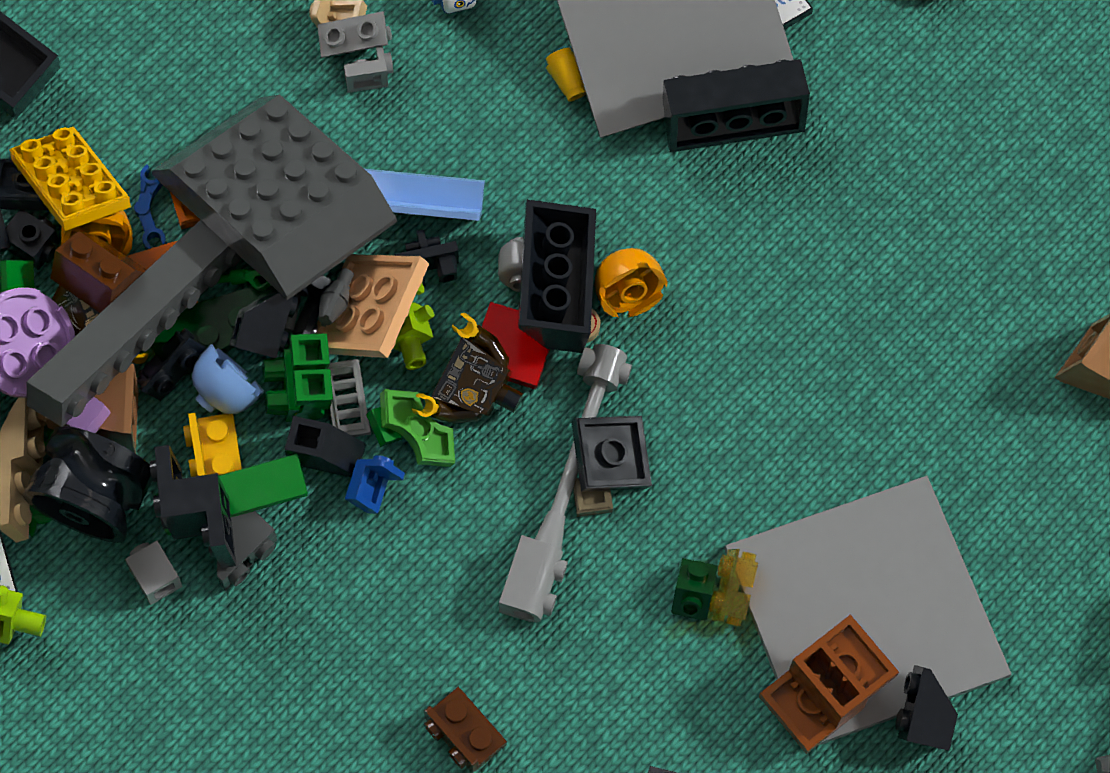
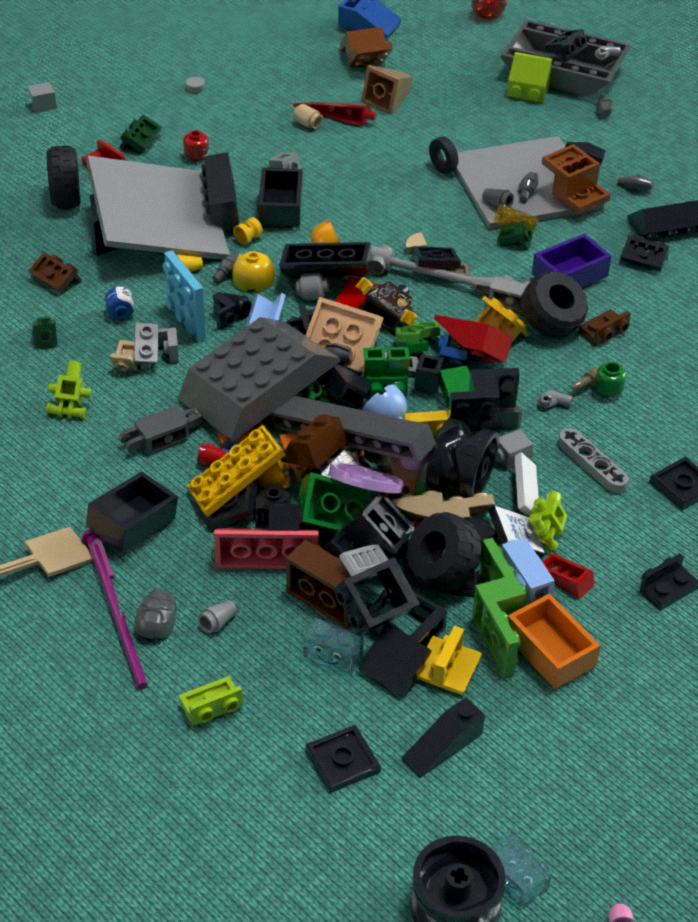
camera: 85 degrees left, 25 degrees down
(76, 591) = (525, 483): none -> white tile
(130, 155) = (209, 454): none -> red cone
(140, 690) = (614, 483): none -> light grey beam
(180, 82) = (160, 430): none -> dark grey hinge
(282, 640) = (554, 398): none -> light grey arm
(313, 725) = (610, 379): none -> green head
(337, 708) = (587, 380): none -> dark tan bar
(392, 507) = (480, 338): none -> red slope
(441, 69) = (184, 296): none -> medium azure plate
(442, 644) = (554, 304): none -> black tyre
(451, 561) = (502, 318): none -> yellow bracket
(457, 139) = (225, 310): none -> black bracket
(474, 155) = (242, 303): none -> black cone
(556, 174) = (253, 271): none -> yellow cylinder
(567, 135) = (225, 267): none -> dark grey piece
(600, 673) = (576, 258): none -> dark purple piece
(660, 157) = (248, 230): none -> yellow wheel
(664, 425) = (415, 240): none -> tan tile
(744, 197) = (280, 197): none -> black piece
(781, 556) = (498, 197): none -> dark grey cone
(827, 607) = (528, 185): none -> dark grey piece
(859, 203) = (285, 161): none -> light grey bracket
(883, 54) = (196, 145): none -> red head
(900, 460) = (450, 152): none -> black tyre
(1006, 230) = (307, 116): none -> tan brick
(1036, 300) = (343, 112): none -> red piece
(1091, 39) = (195, 84): none -> light grey tile

